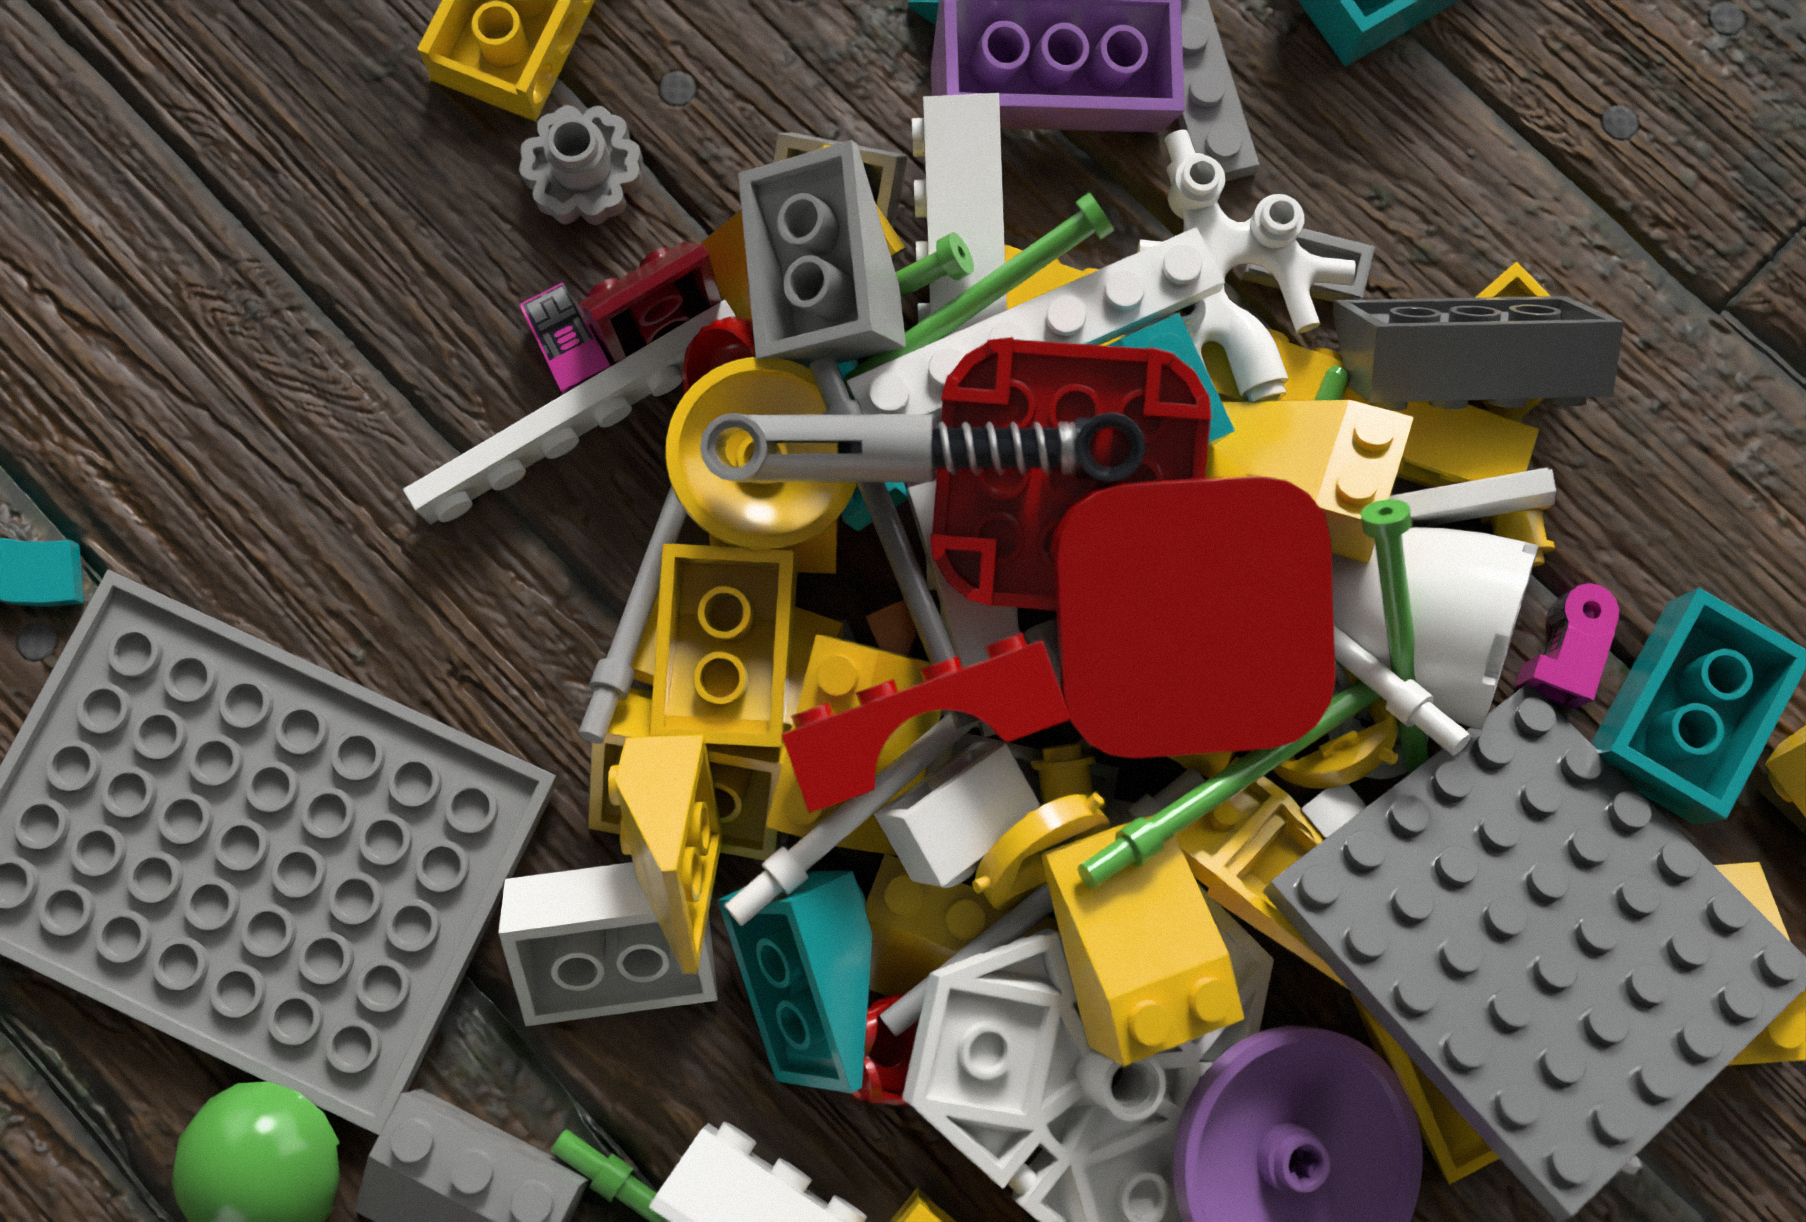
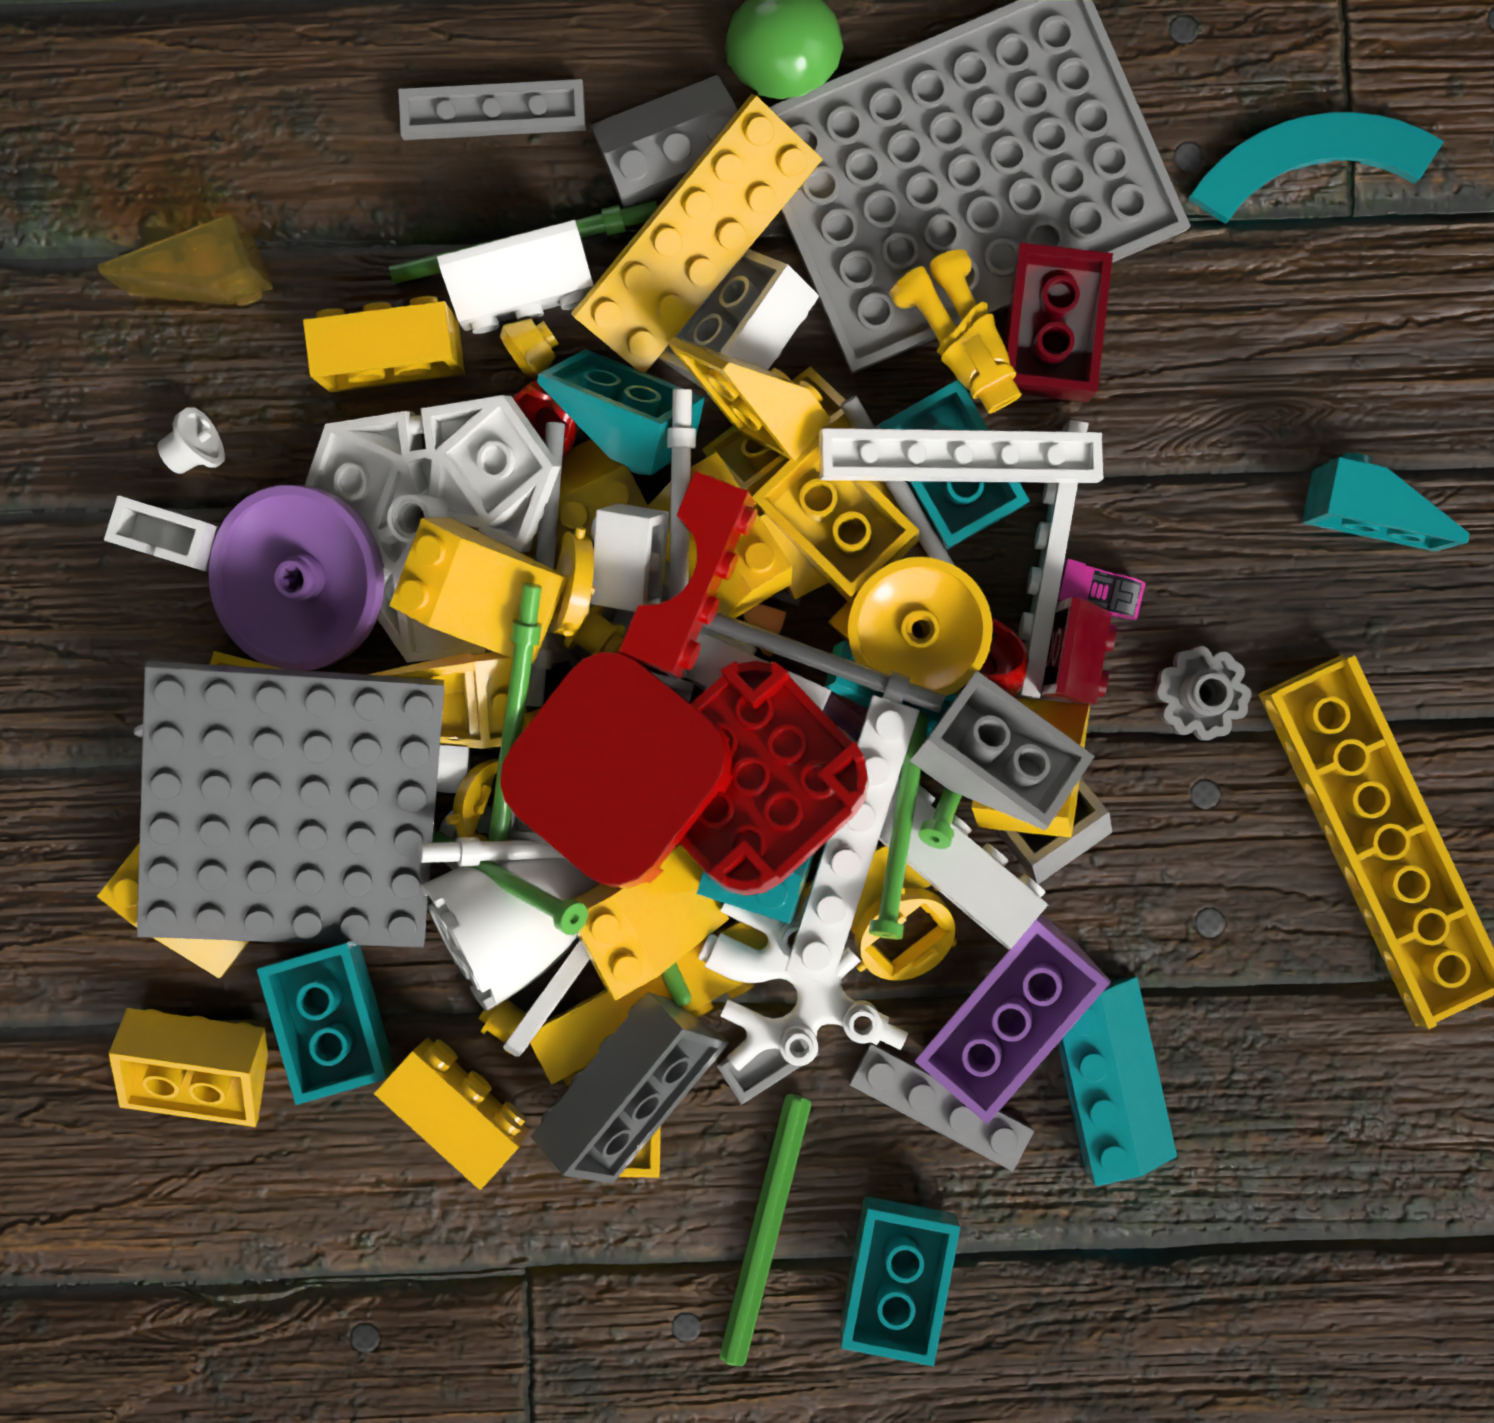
camera: 135 degrees right, 10 degrees up
(245, 154) = (1376, 504): none -> teal slope
(324, 611) = (1057, 320): none -> dark red slope
(424, 661) = (974, 346): none -> yellow piece
(547, 1066) = (697, 234): none -> yellow plate
(551, 574) = (960, 455): none -> white plate
(563, 583) = (953, 507): none -> teal brick
(827, 1140) = (529, 346): none -> yellow cone
(911, 448) = (841, 701): piece -> none
(1059, 203) = (919, 957): none -> yellow piece
(1463, 126) = (765, 1229): none -> bright green axle
(1577, 647) = (417, 991): dark pink leg -> none
(1659, 496) = (454, 1111): none -> yellow brick

